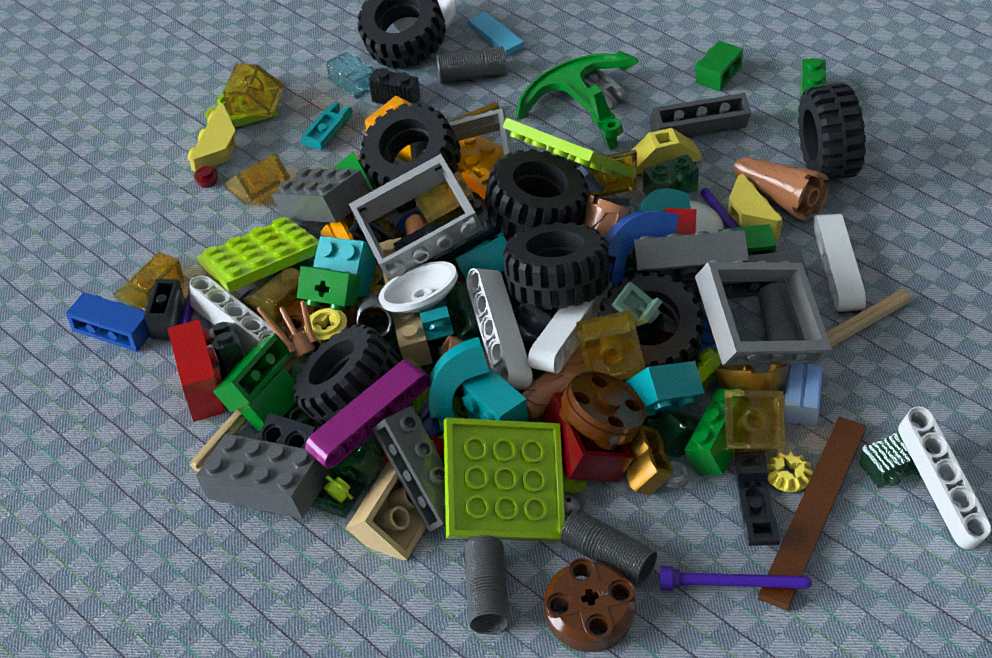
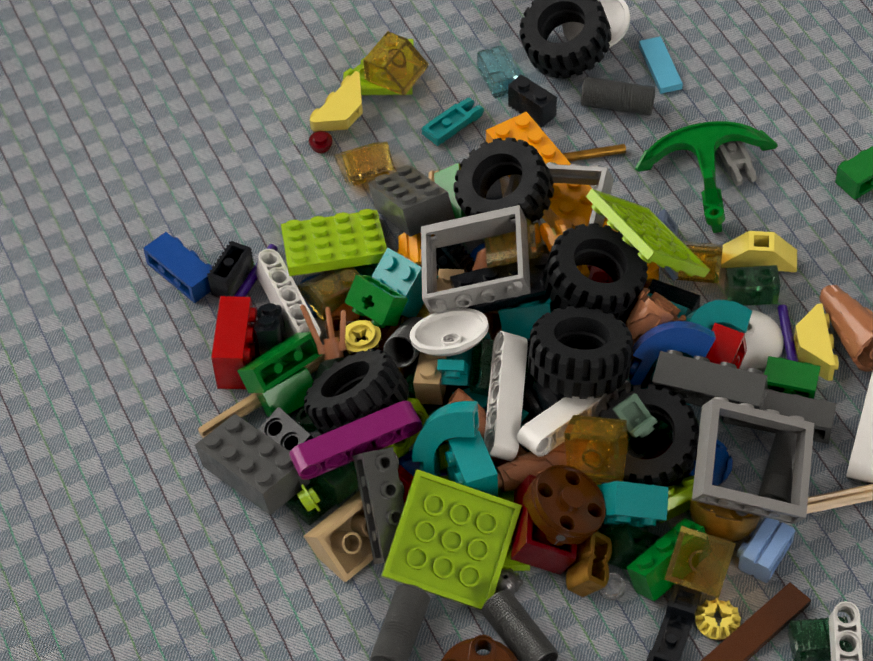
camera: 20 degrees right, 5 degrees up
(140, 284) = (235, 228): clear yellow slope -> none
(703, 116) = (815, 226): dark grey brick -> none

